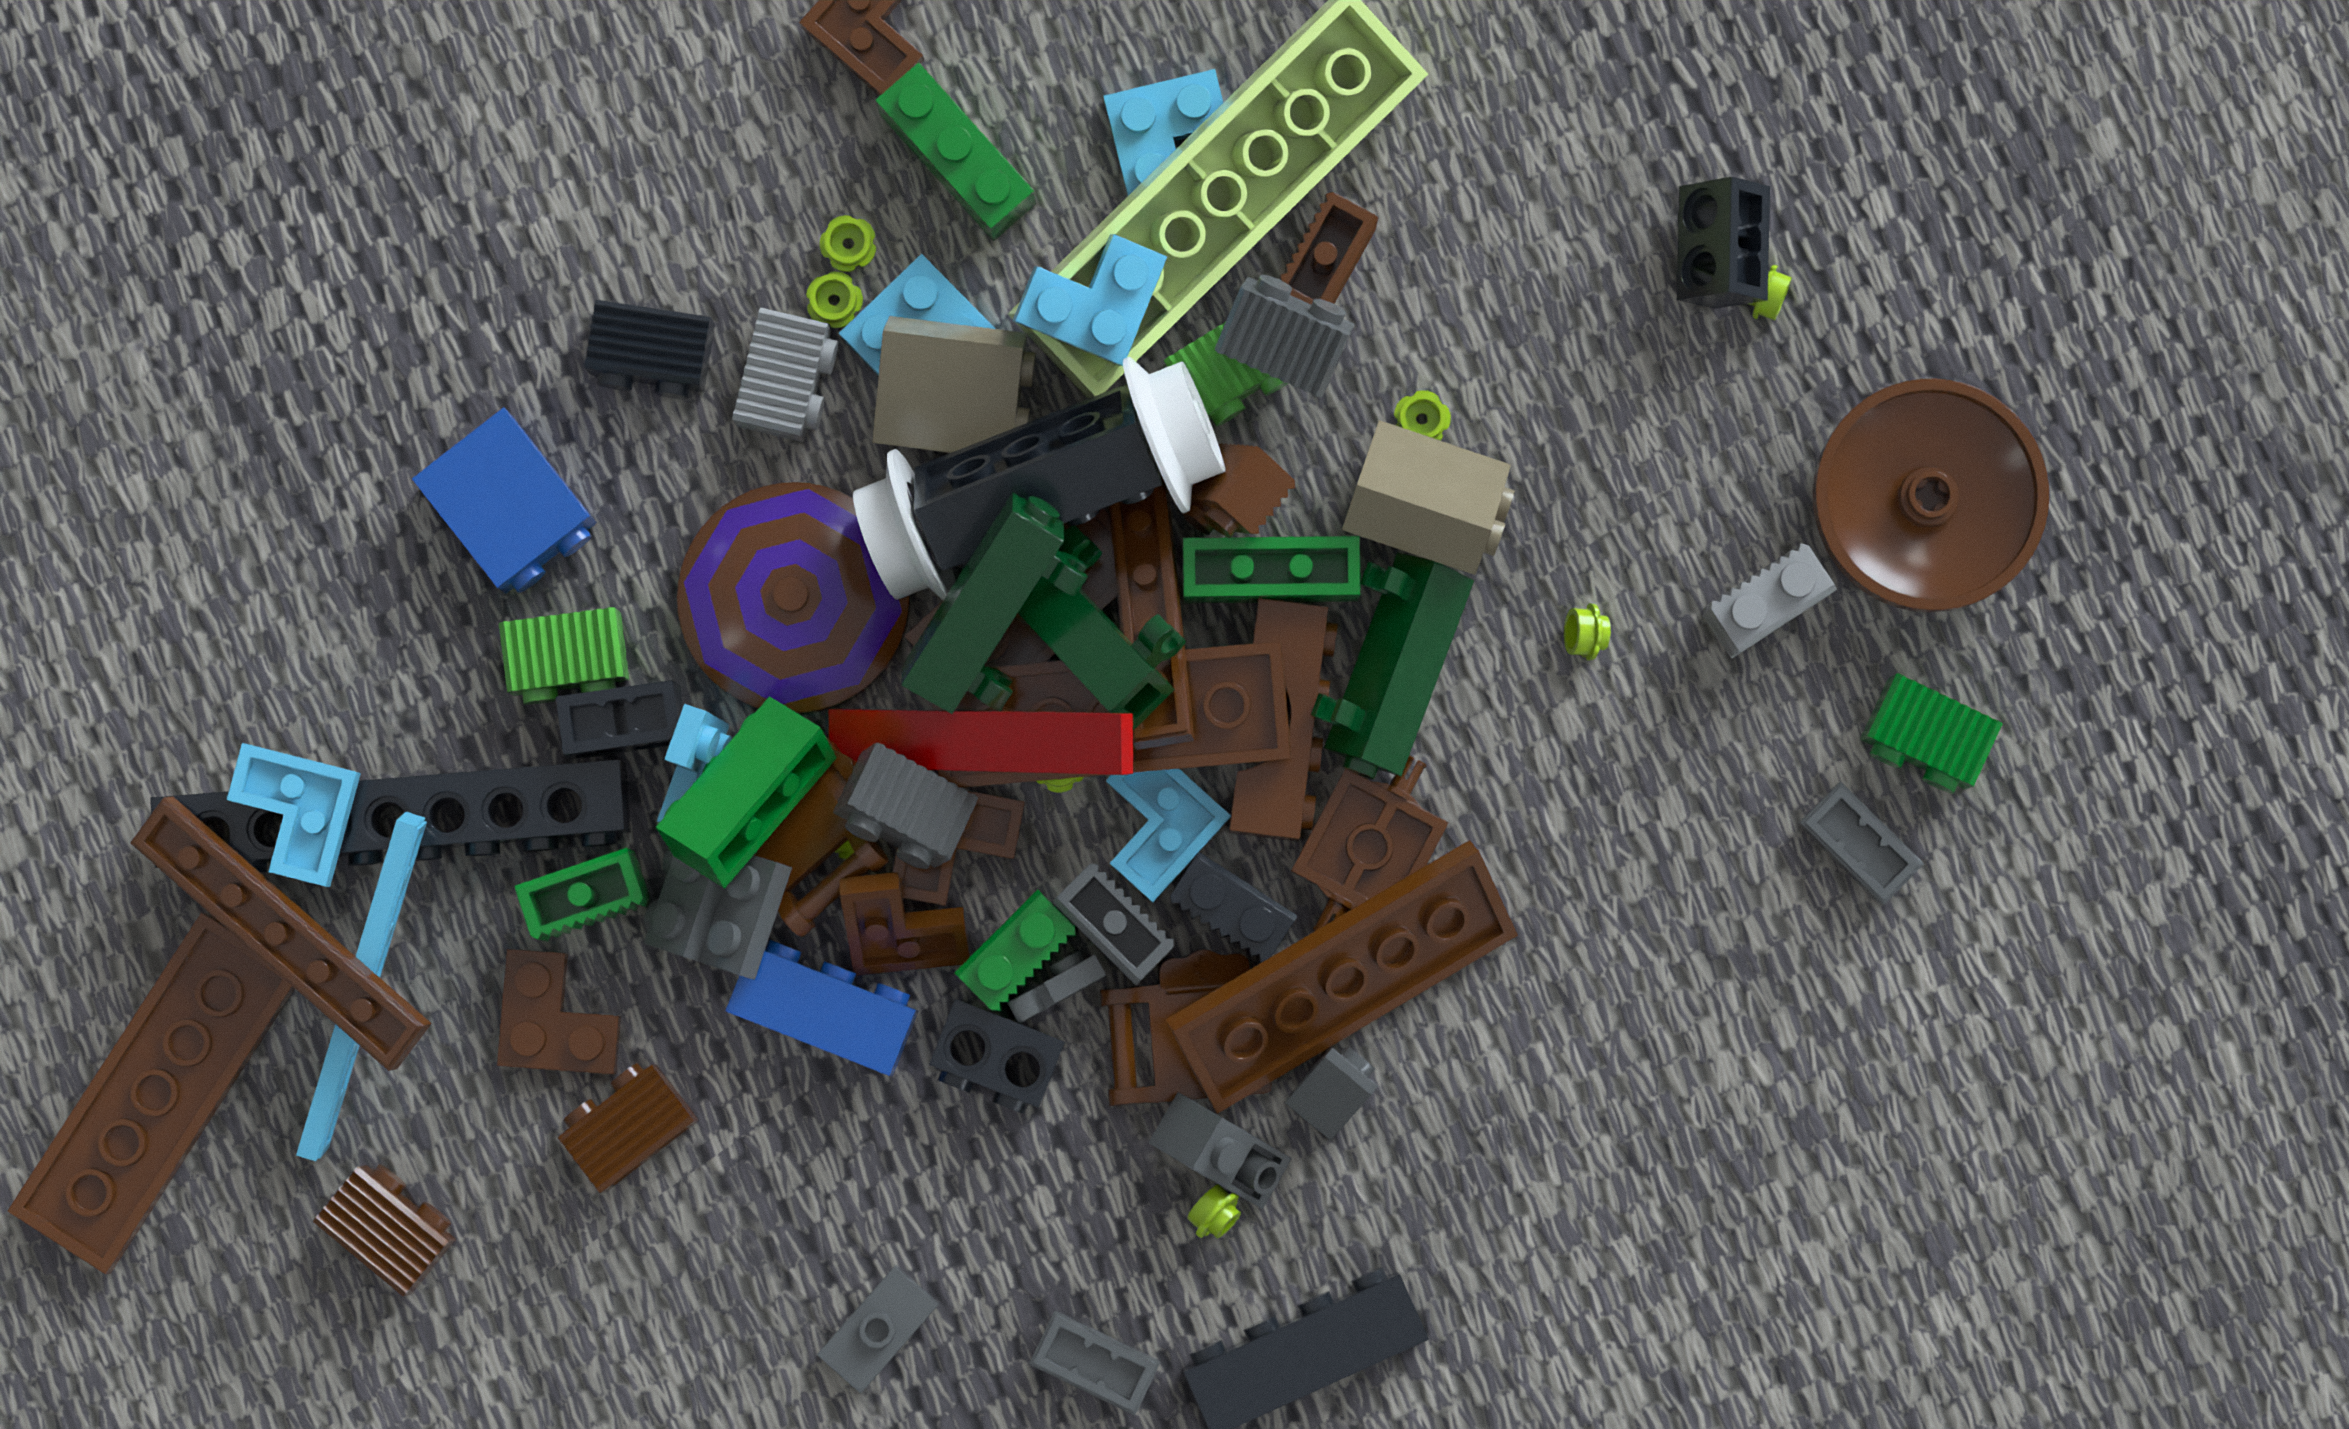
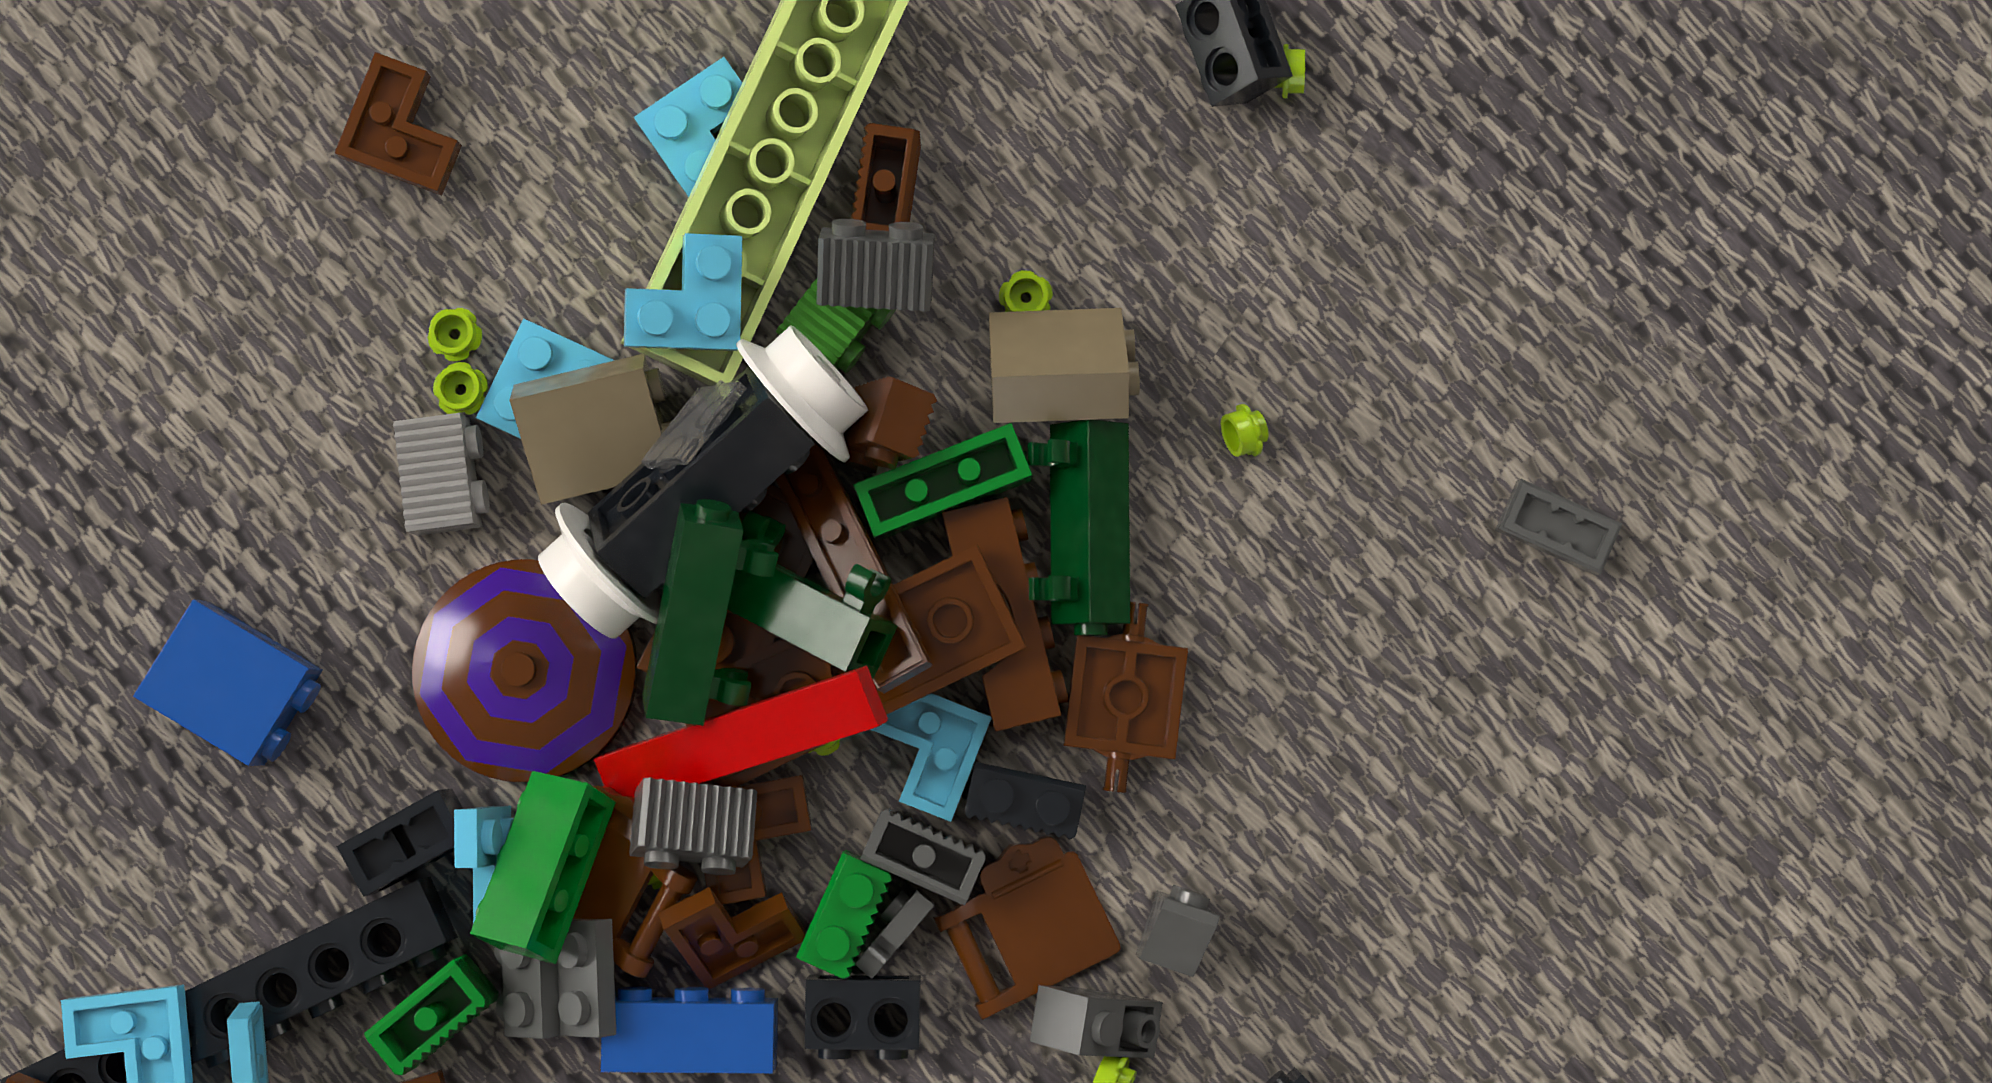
camera: 25 degrees left, 0 degrees up
(563, 653) = (333, 800): bright green brick -> none
(649, 348) = (308, 495): black brick -> none
(956, 151) = (519, 215): green brick -> none
(1051, 421) = (693, 425): none -> clear piece
(1342, 976) = (1146, 825): reddish brown plate -> none
(1768, 599) = (1395, 341): light grey brick -> none
(1930, 733) = (1582, 405): green brick -> none
(1931, 495) = (1503, 194): reddish brown dish -> none

